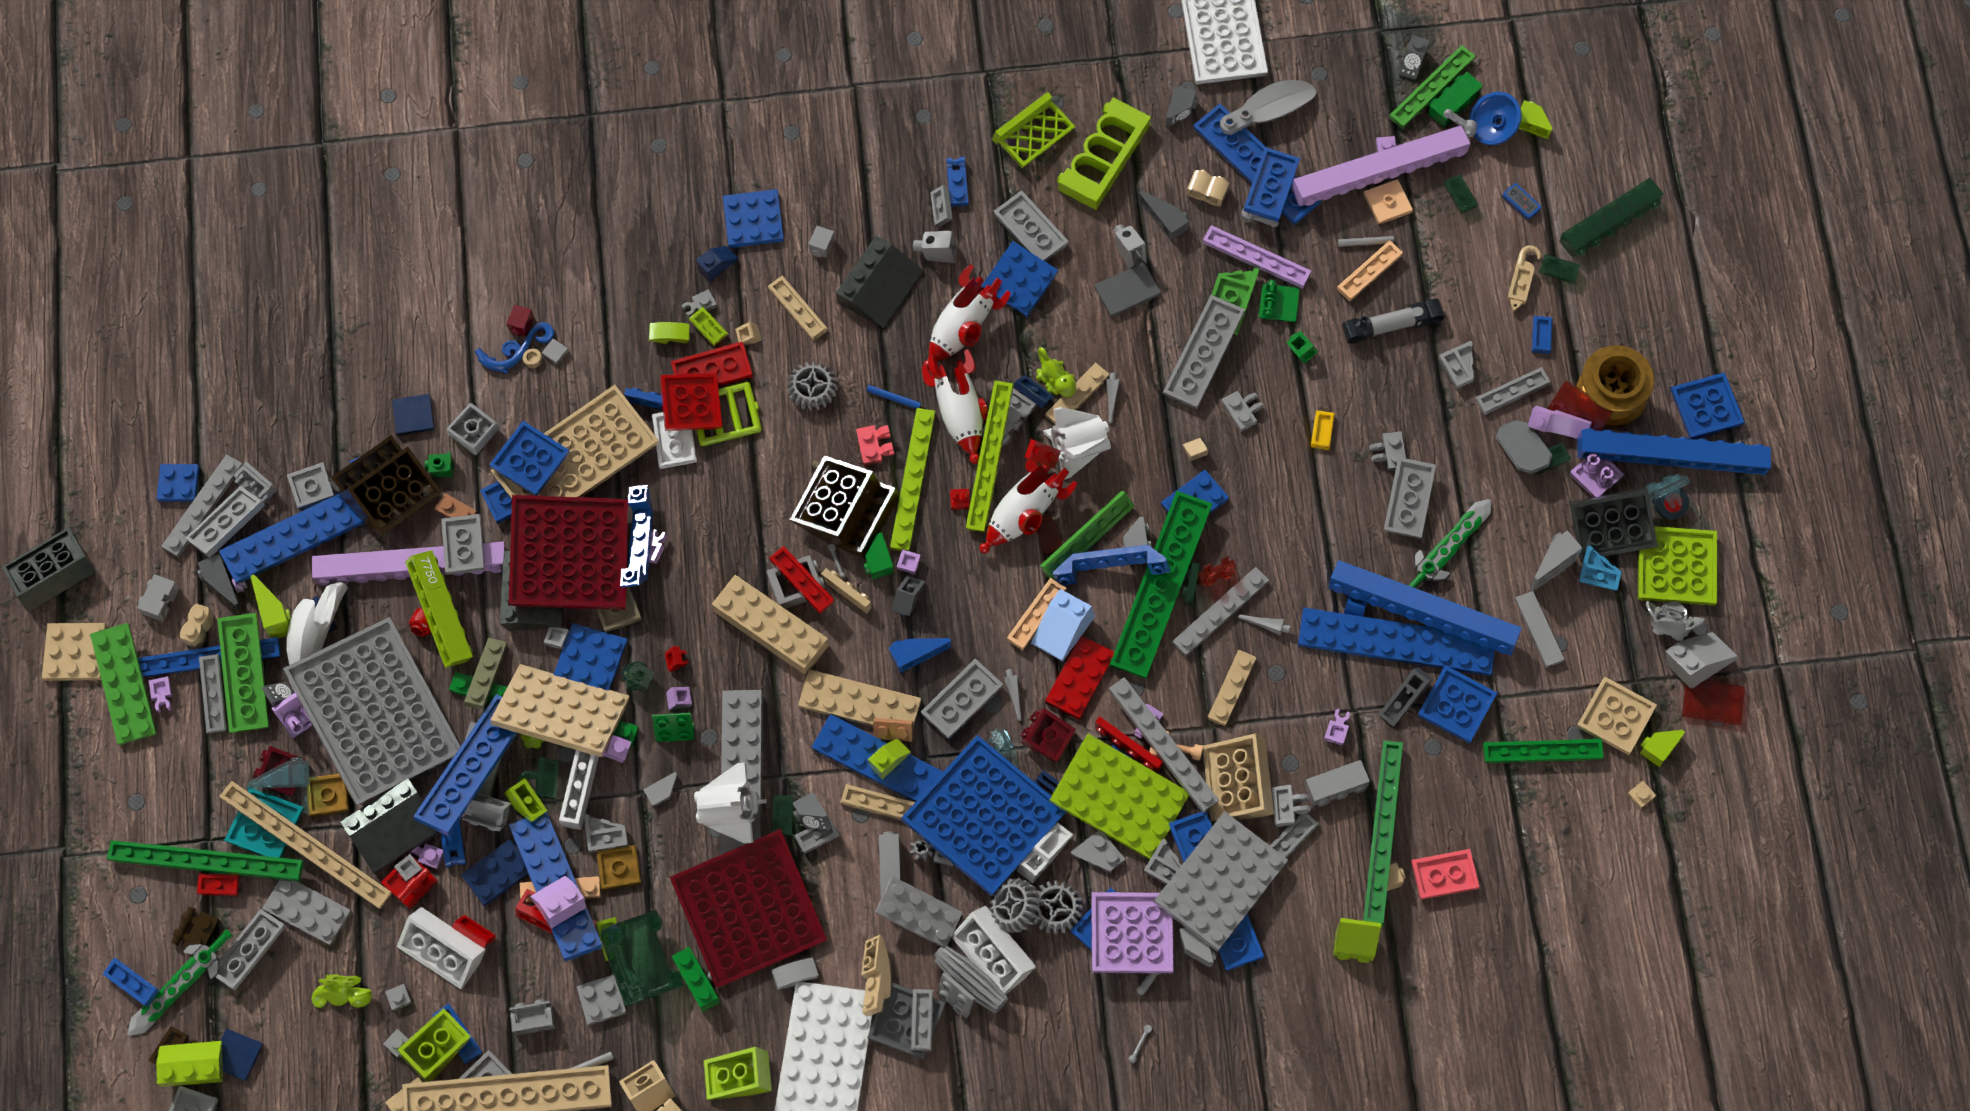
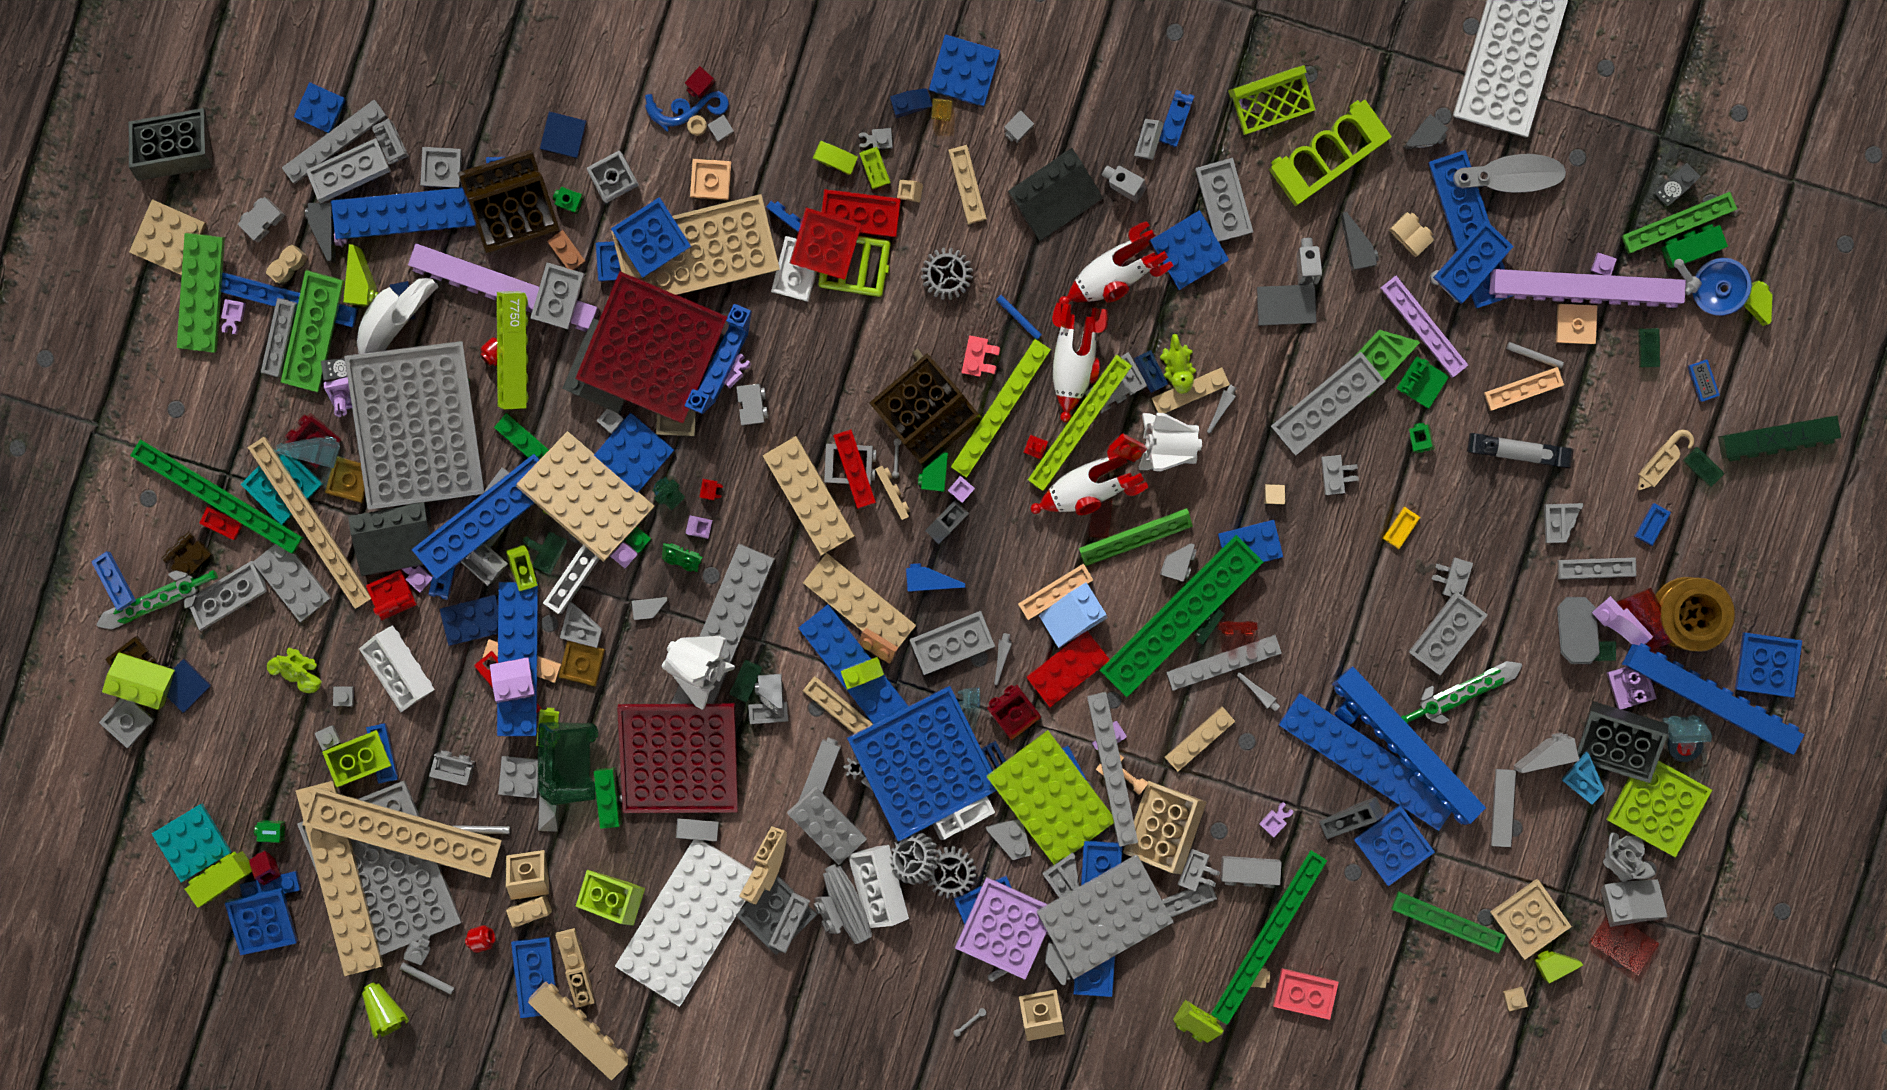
camera: 20 degrees right, 20 degrees up
(408, 868) = (393, 586): light grey plate -> none
(474, 931) = (431, 667): red tile -> none
(485, 673) = (532, 428): olive plate -> none
(563, 396) = (710, 179): none -> light nougat plate
(643, 1021) = (548, 816): none -> light grey slope
(680, 563) = (752, 399): none -> light grey brick
(746, 256) = (941, 109): none -> clear yellow plate
(1067, 571) = (1101, 566): blue slope -> none
(1133, 749) = (1076, 745): red plate -> none
(1206, 1004) = (1041, 1015): none -> tan slope

